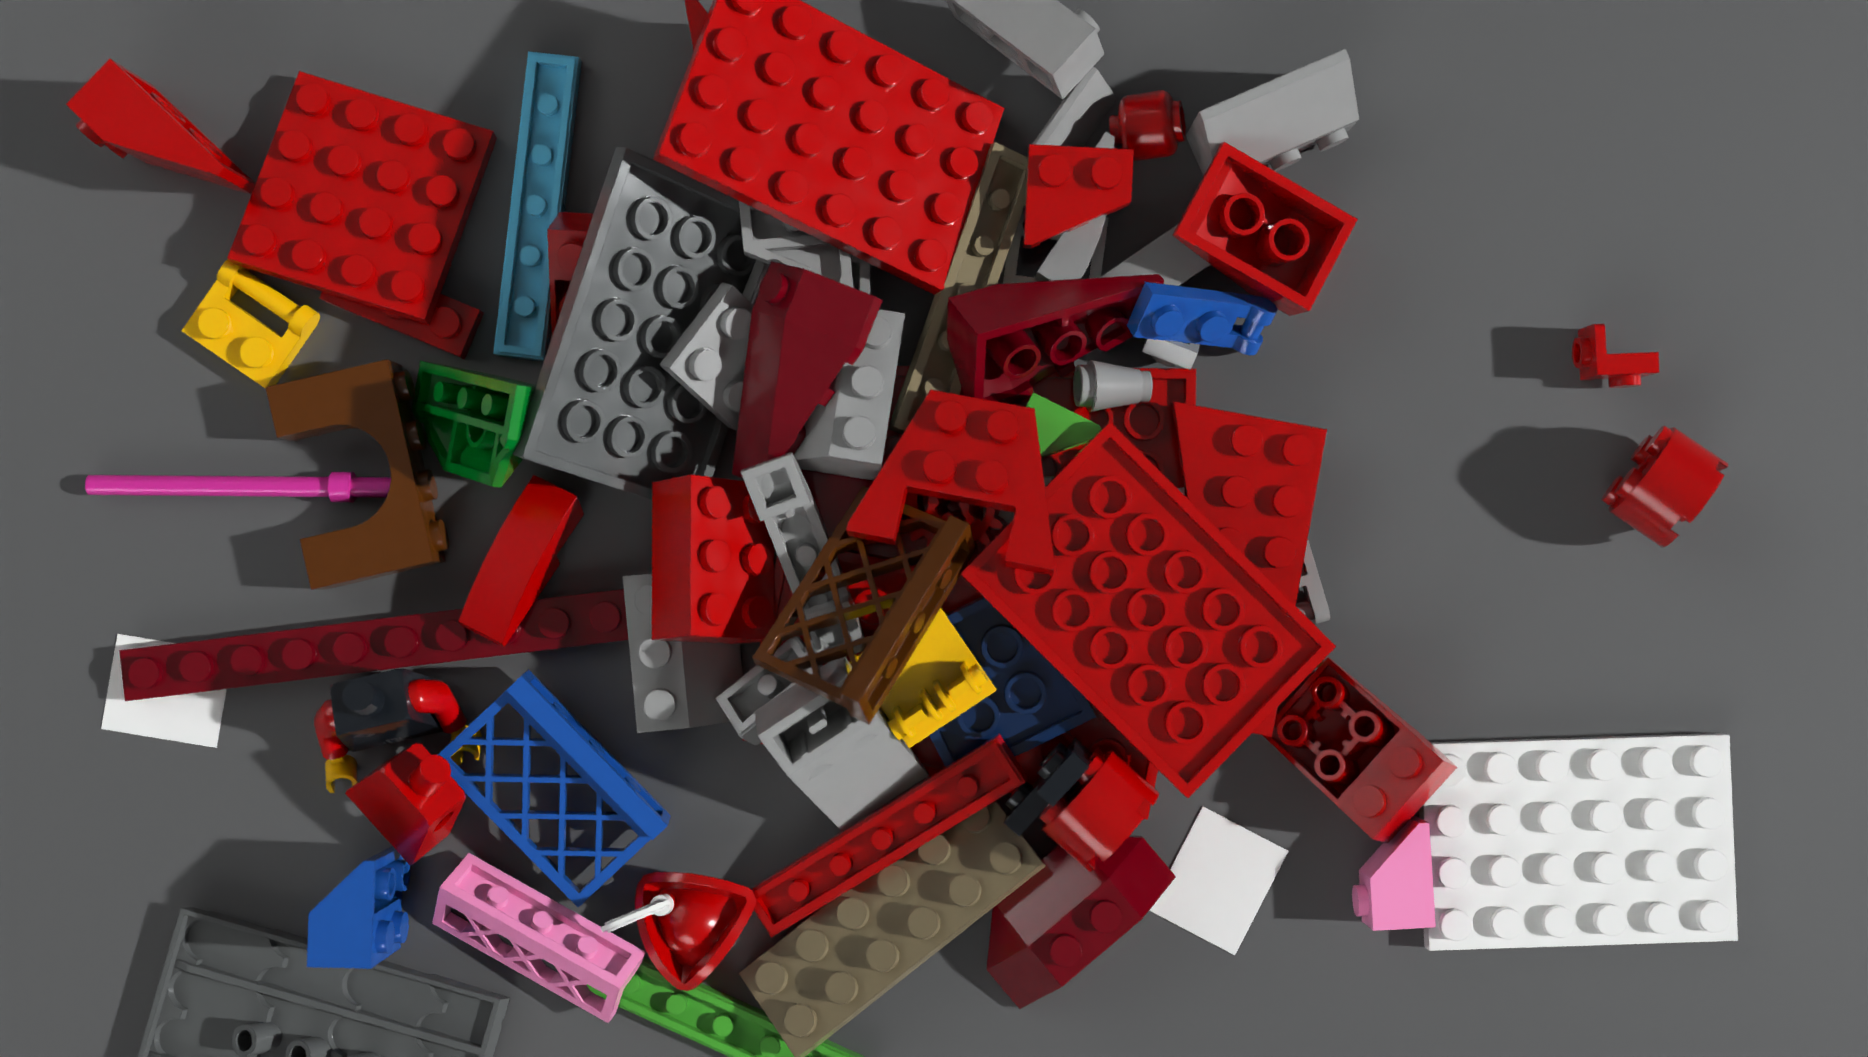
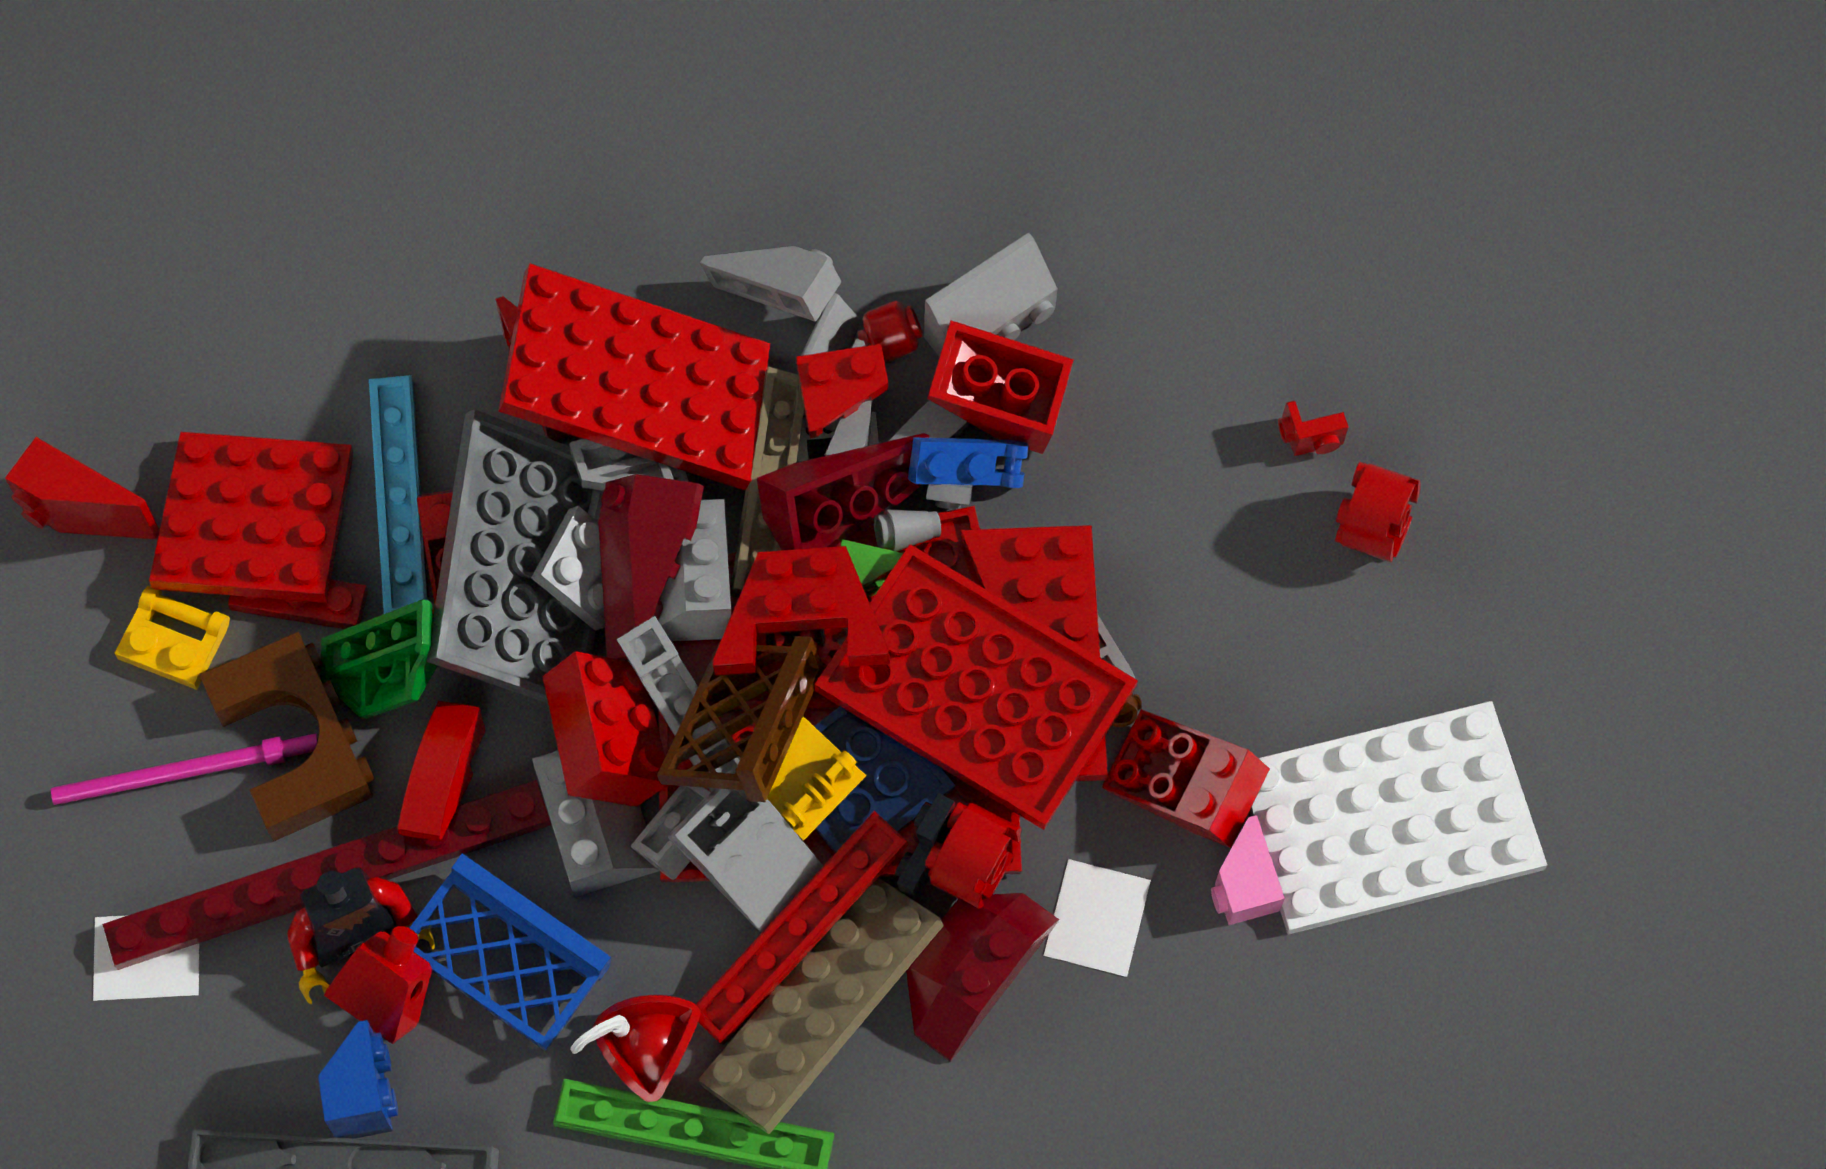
camera: 15 degrees left, 20 degrees down
(538, 931) = (517, 1070): bright pink fence -> none

